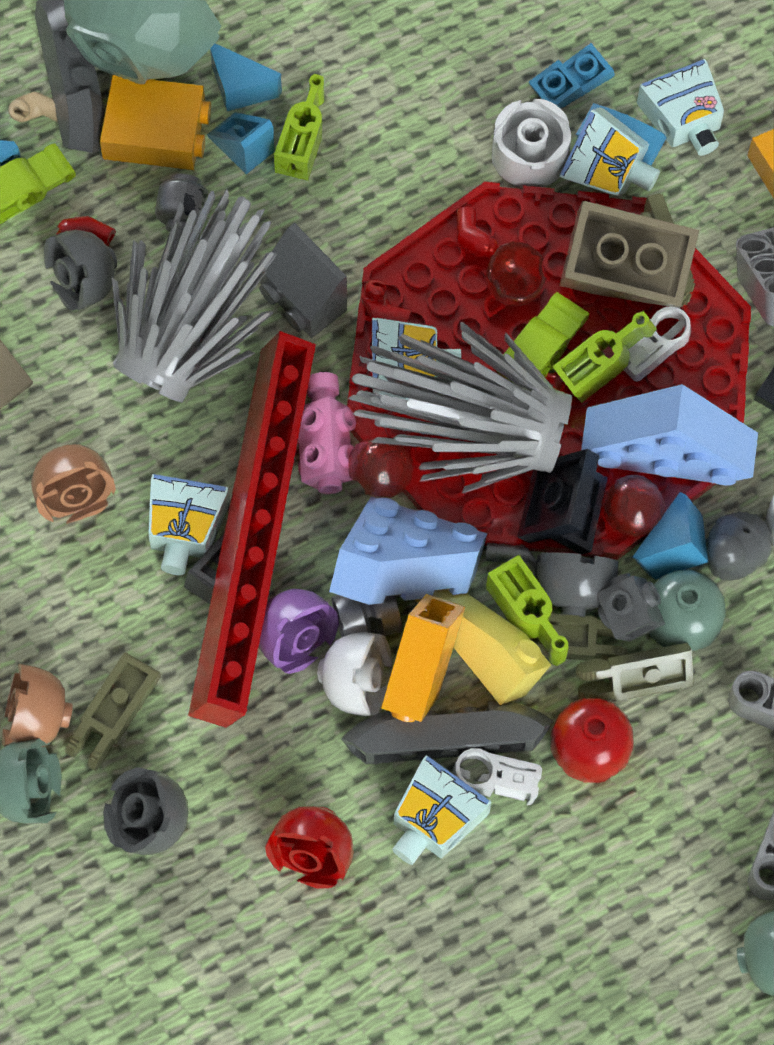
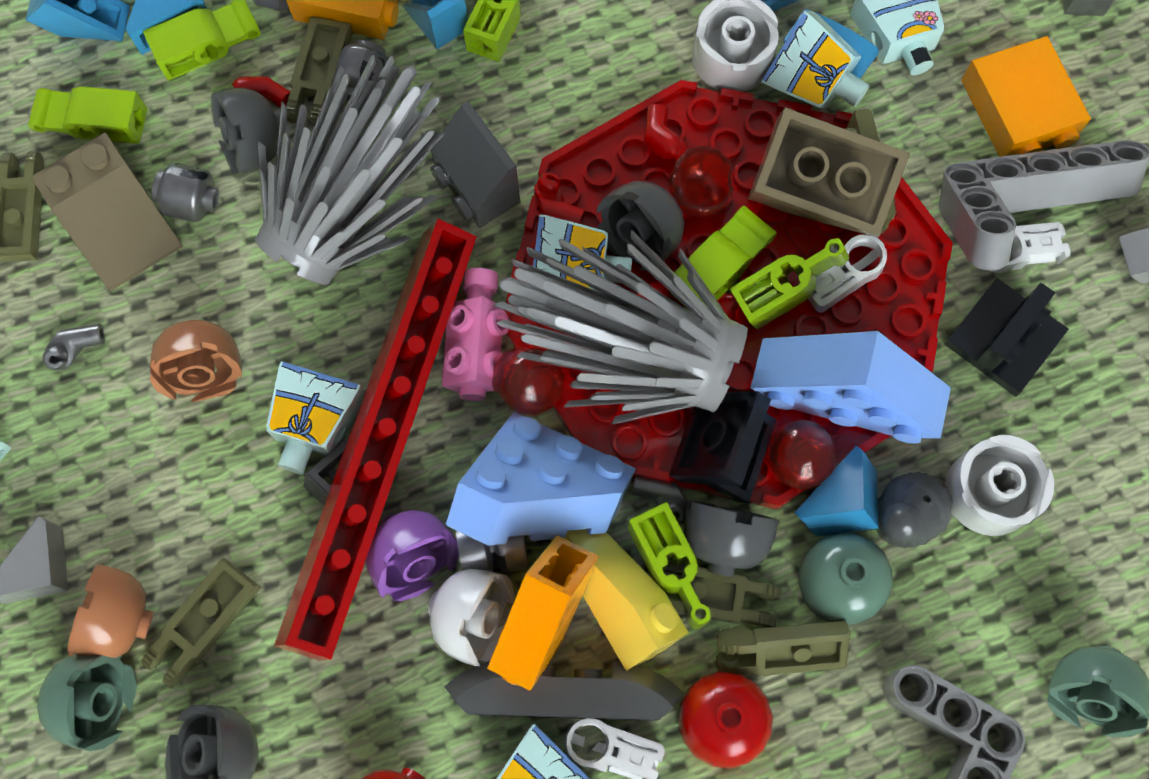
camera: 10 degrees right, 5 degrees up
(32, 332) = (184, 192): none -> flat silver head
(137, 200) = (316, 65): none -> olive hinge
(467, 303) = (646, 211): none -> dark grey cylinder
(630, 607) = (785, 575): dark grey brick -> none

